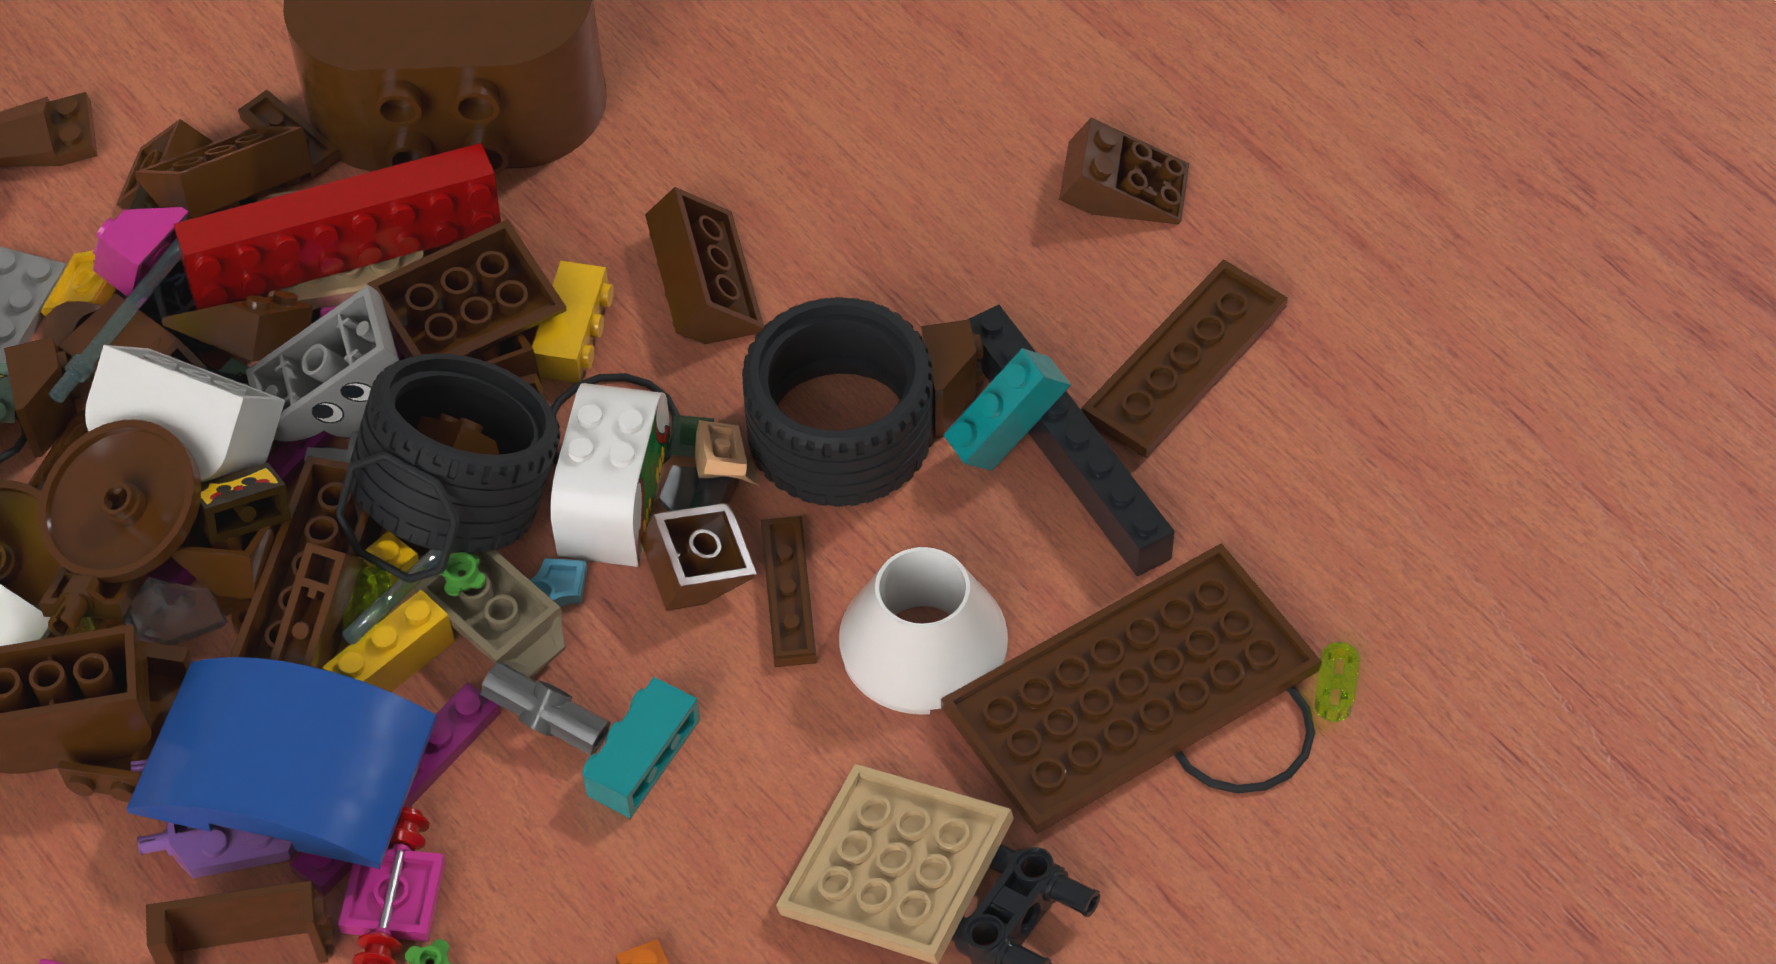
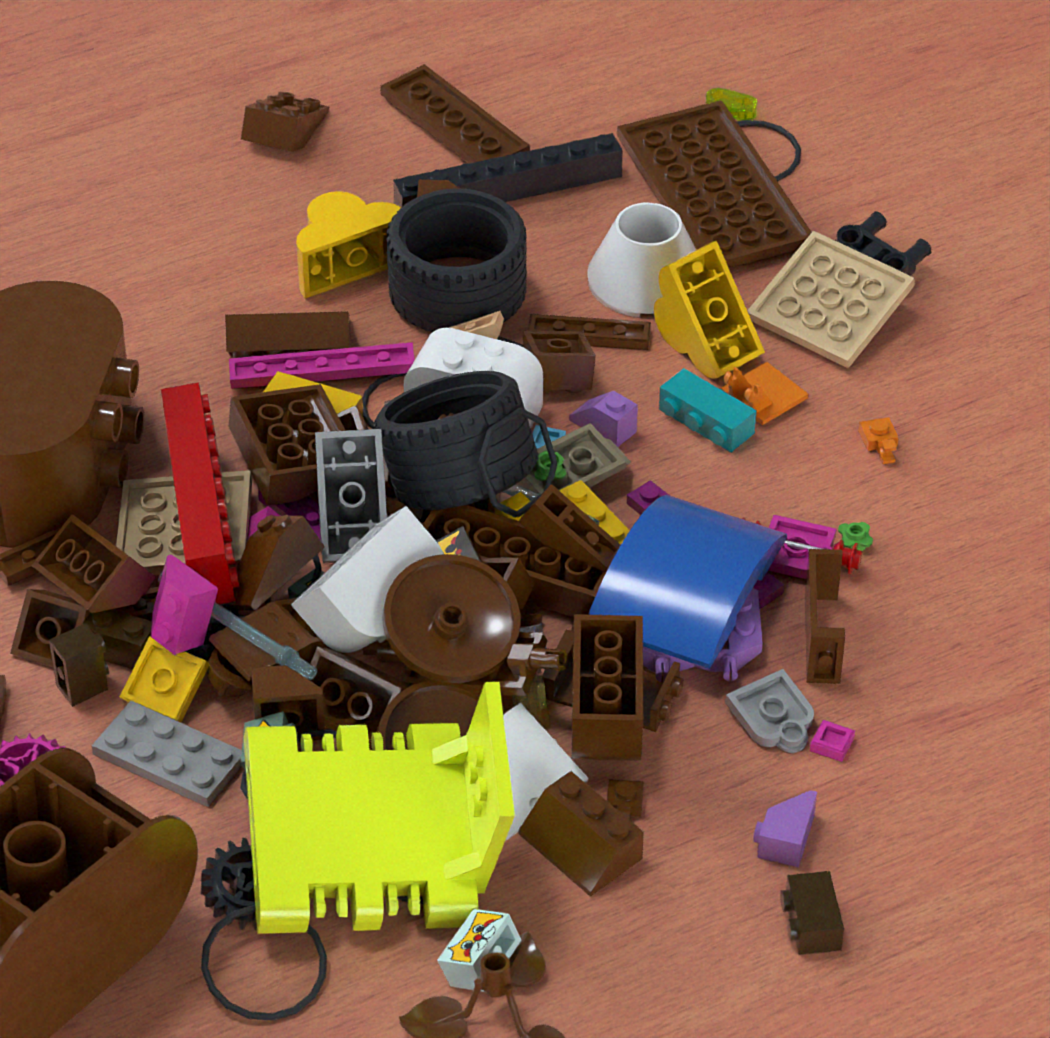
camera: 80 degrees left, 10 degrees down
(88, 193) = (79, 664): none -> dark brown brick
(91, 909) = (773, 712): none -> light grey plate
(545, 708) = (664, 451): dark grey piece -> none
(607, 634) = (611, 416): none -> medium lavender slope
(648, 315) = (323, 364): none -> dark pink plate
(698, 812) = (764, 391): none -> orange plate
(798, 706) = (705, 313): none -> yellow brick
(868, 262) = (342, 241): none -> yellow brick
(1007, 409) = (491, 170): teal brick -> none

